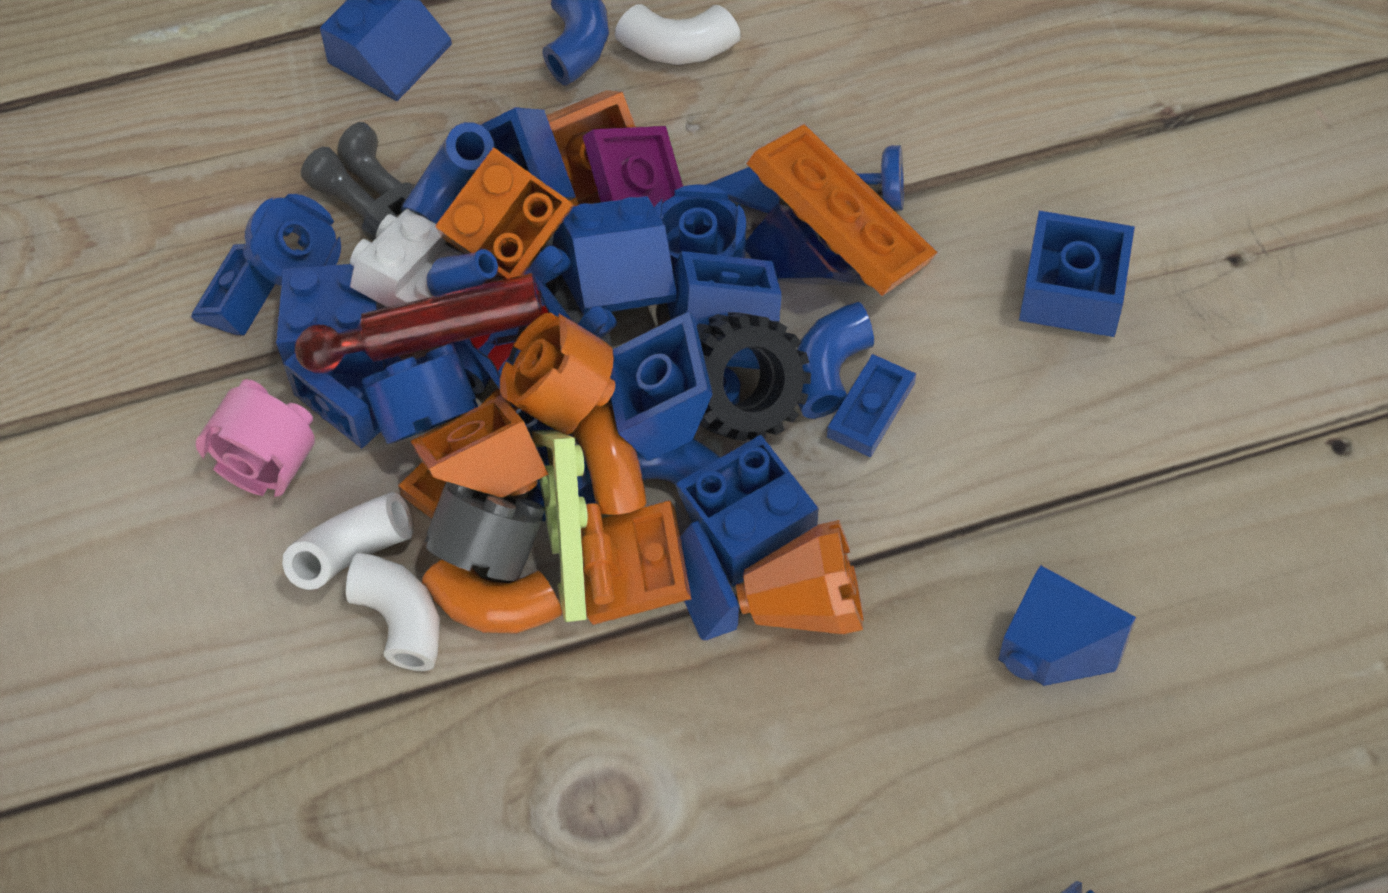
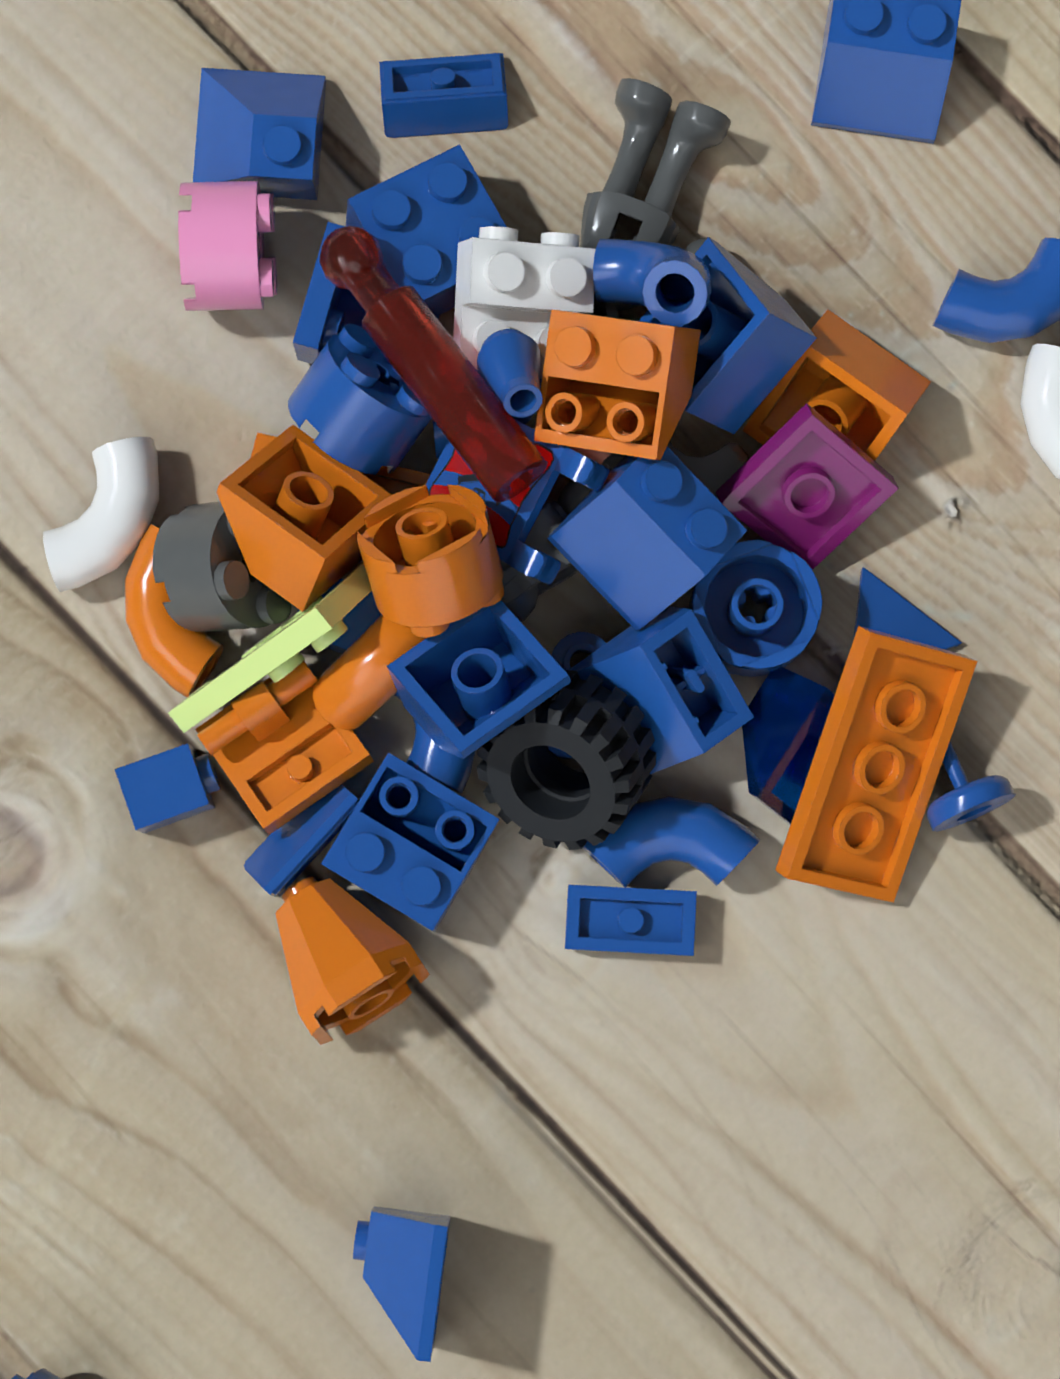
camera: 60 degrees right, 25 degrees up
(184, 399) = (261, 130): none -> blue slope
(280, 218) = (548, 148): blue plate -> none
(333, 544) = (162, 410): white cylinder -> none
(619, 654) = (168, 787): none -> blue brick
(1077, 273) = (928, 1092): blue brick -> none

